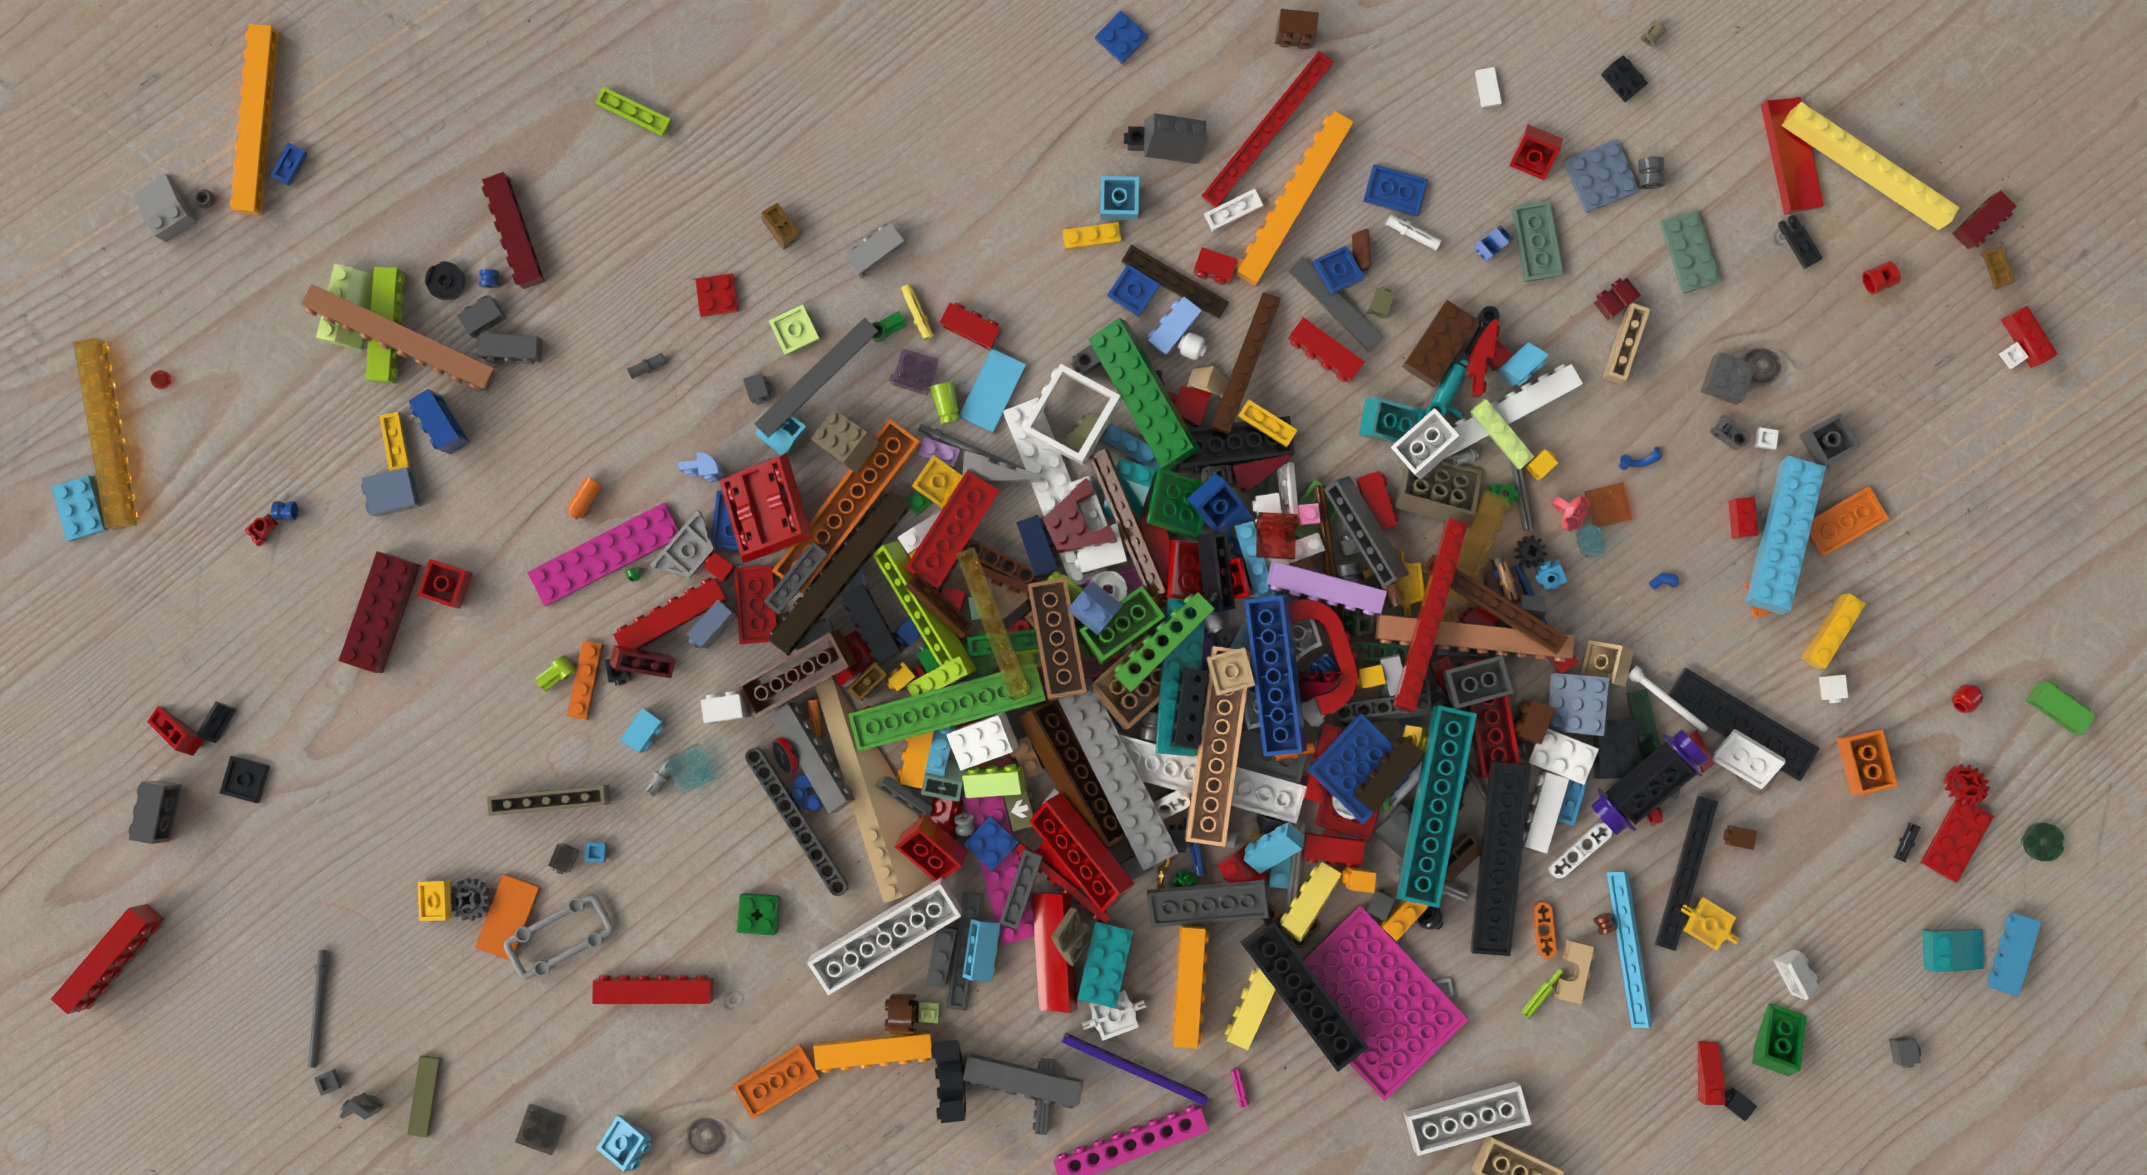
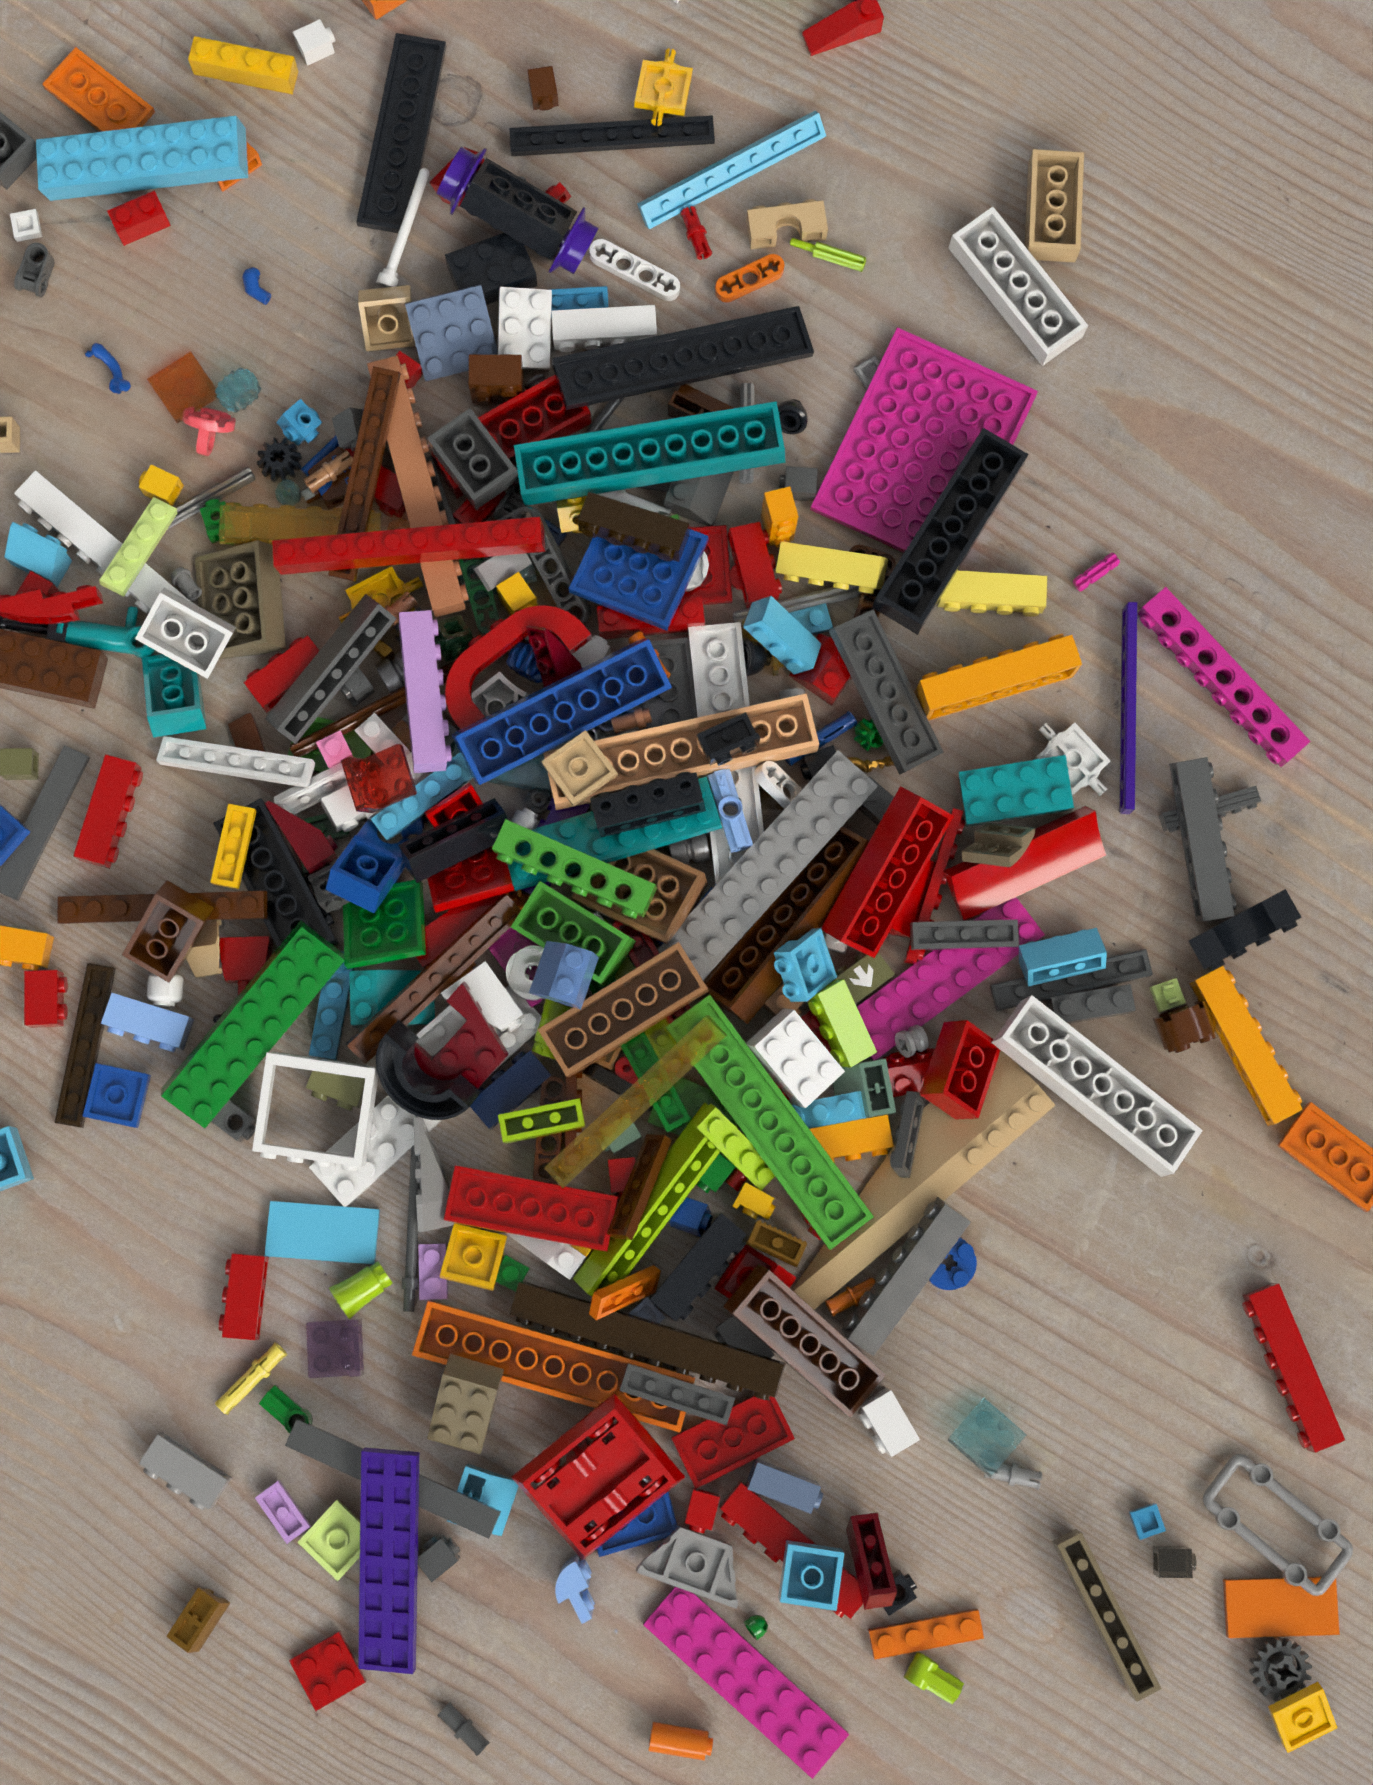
camera: 120 degrees left, 5 degrees down
(643, 730) = (962, 1523): medium azure brick -> none
(648, 619) = (811, 1575): none -> medium azure brick
(748, 922) = (1130, 1284): green brick -> none
(767, 356) = (388, 1560): none -> dark purple plate
(783, 755) = (917, 1318): tile -> none
(805, 827) = (1008, 1258): dark grey beam -> none
(825, 302) = (283, 1511): none -> lavender plate
(874, 569) = (624, 1292): none -> orange plate
(991, 843) = (921, 997): blue plate -> none
(1005, 557) = (541, 1121): none -> lime brick
(1039, 771) = (804, 966): none -> medium azure plate
(1061, 482) = (411, 1086): none -> black brick
(1091, 236) = (61, 1181): yellow plate -> none
(1178, 764) = (726, 795): none -> light blue piece
(1212, 779) = (728, 739): none -> black bracket
(1226, 360) = (167, 931): none -> reddish brown brick
(1253, 722) = (637, 718): none -> nougat animal
(1327, 446) = (236, 761): none -> white plate
(1338, 460) = (246, 734): none -> copper slope
(1402, 918) = (807, 450): light orange brick -> none
(1504, 549) = (288, 493): none -> clear light blue plate
(1591, 904) = (696, 233): none -> red pin
(1605, 923) = (712, 208): copper wheel -> none
(1642, 712) = (432, 255): clear green plate -> none
(1748, 759) = (442, 110): white plate -> none

